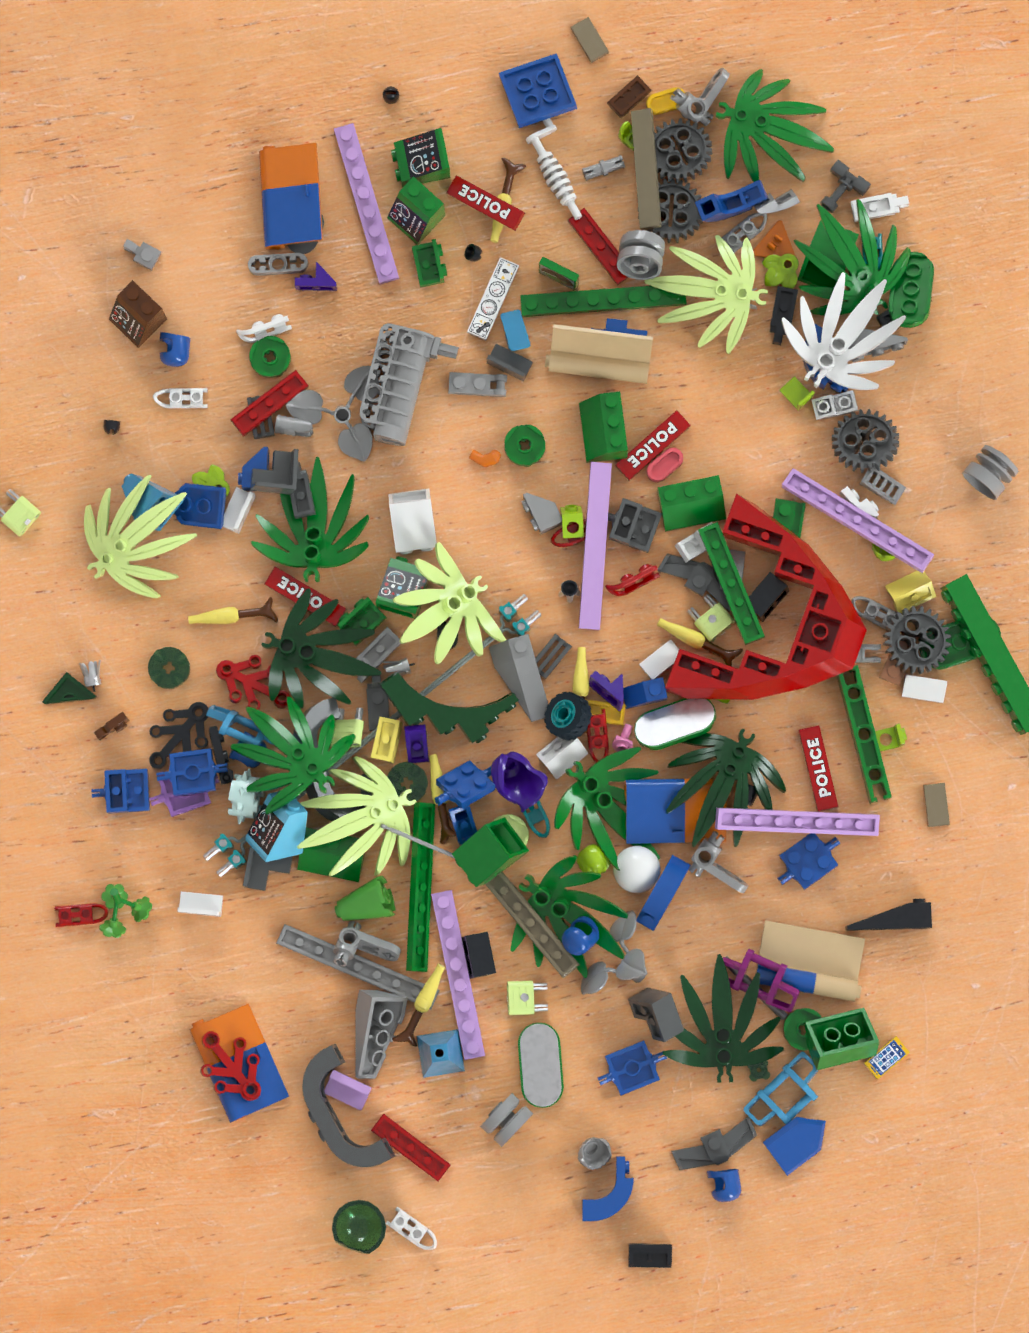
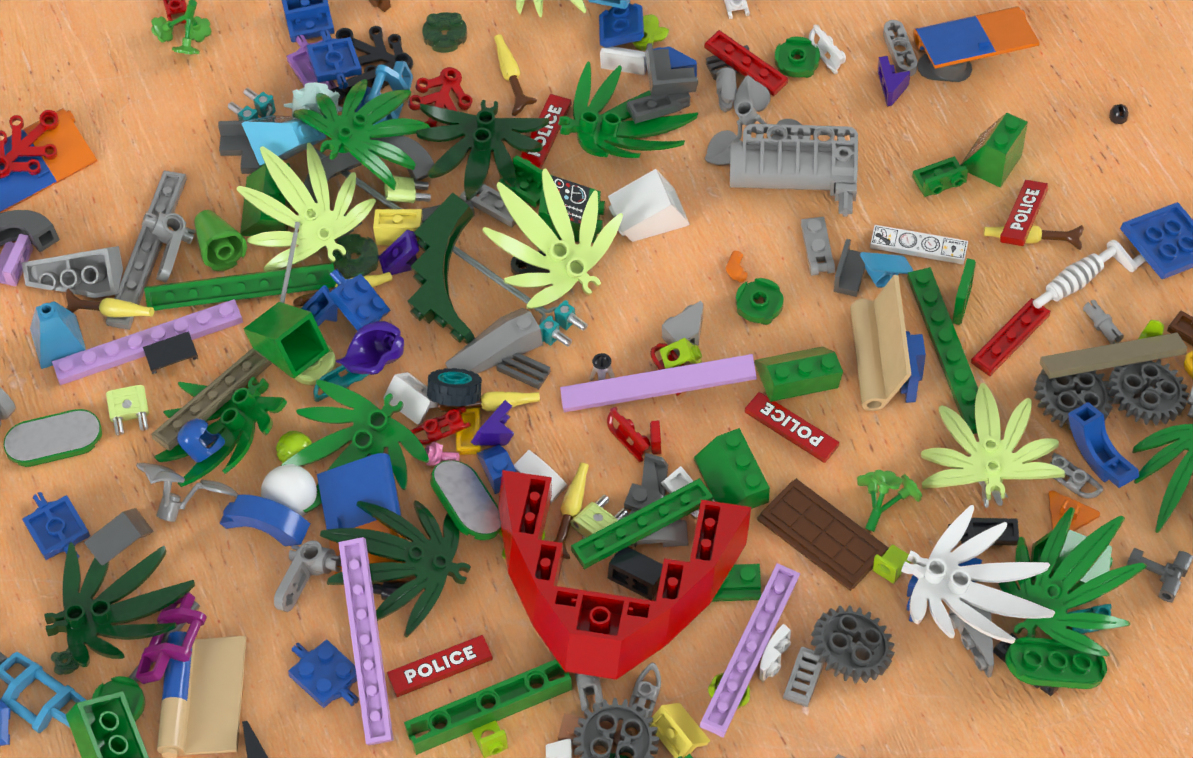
camera: 80 degrees right, 25 degrees down
(200, 904) = (197, 99): white panel -> none
(366, 203) = (986, 114): lavender plate -> none
(401, 666) = (481, 224): flat silver piece -> none
(421, 157) = (1057, 149): slope -> none
(473, 252) = (965, 215): black hinge -> none
(634, 525) = (691, 419): dark grey plate -> none
(641, 255) = (1009, 364): light grey wheel -> none
(644, 558) = (655, 437): none -> red tile
(664, 465) = (771, 443): coral tile -> none
(736, 381) = (885, 481): none -> bright green plant
(757, 442) = (822, 534): none -> reddish brown piece
(778, 273) = (1035, 521): lime plate -> none
(780, 203) = (1116, 497): light grey slope -> none
(834, 405) = (889, 608): white slope -> none
(880, 205) = (1150, 613): white hinge -> none

